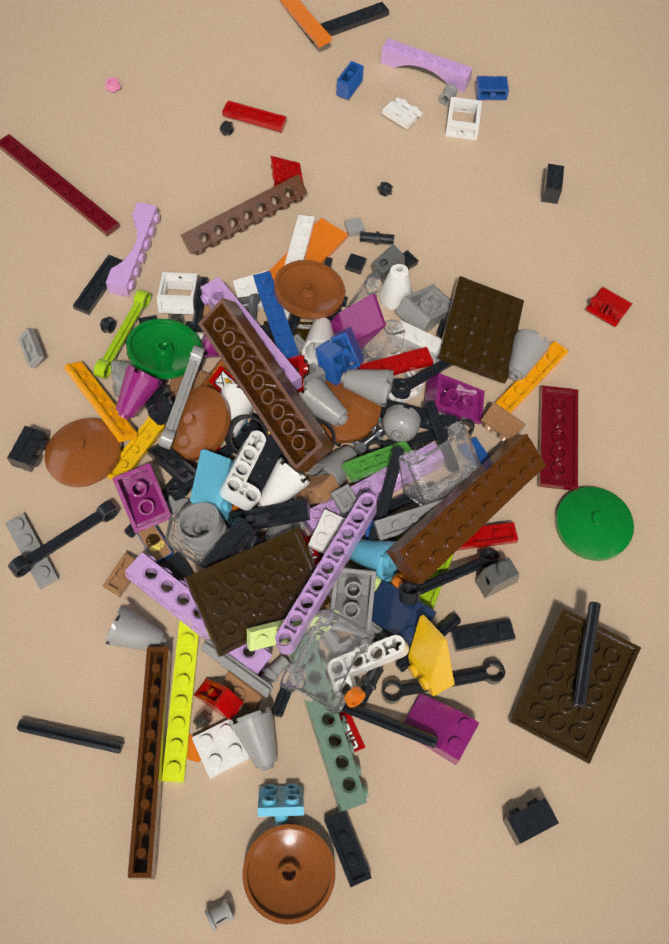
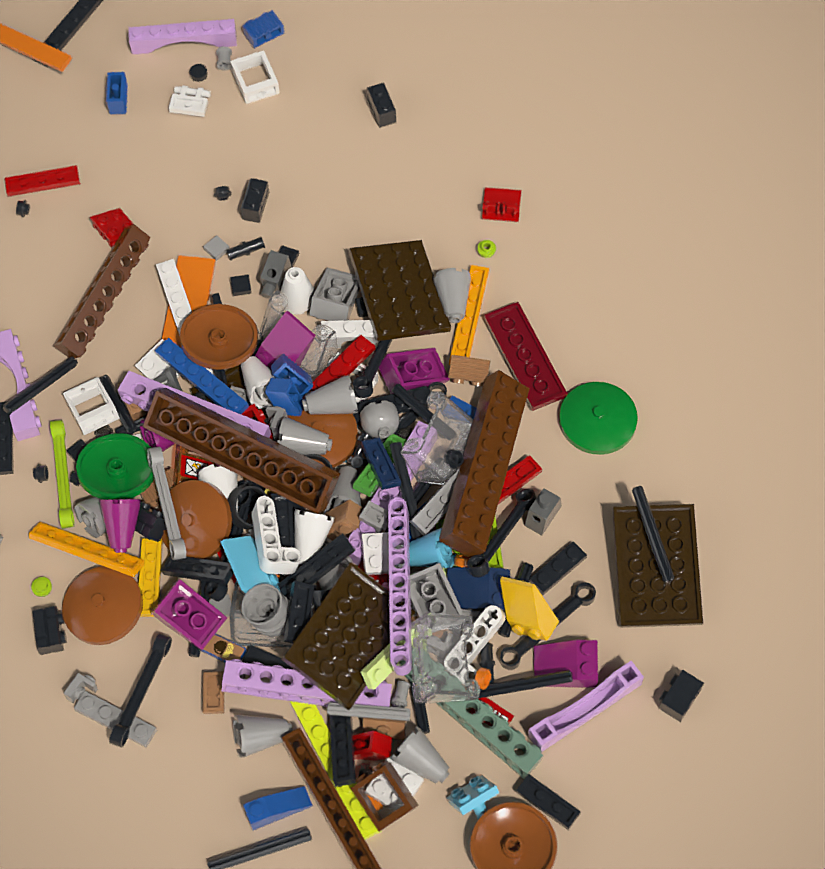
camera: 25 degrees left, 0 degrees up
(18, 507) = (78, 686): none -> light grey bracket
(48, 412) = (41, 586): none -> lime plate
(107, 705) = (276, 806): none -> blue slope
(149, 257) = (40, 385): none -> black axle
(192, 690) = (342, 750): none -> black plate
(218, 754) = (400, 788): none -> reddish brown window
(378, 459) = (380, 463): none -> dark blue tile
(406, 205) = (255, 200): none -> black brick
(422, 96) = (198, 72): none -> black tile
(447, 488) = (454, 458): none -> black plate
(454, 778) = (603, 696): none -> lavender arch
(573, 338) = (486, 253): none -> lime plate

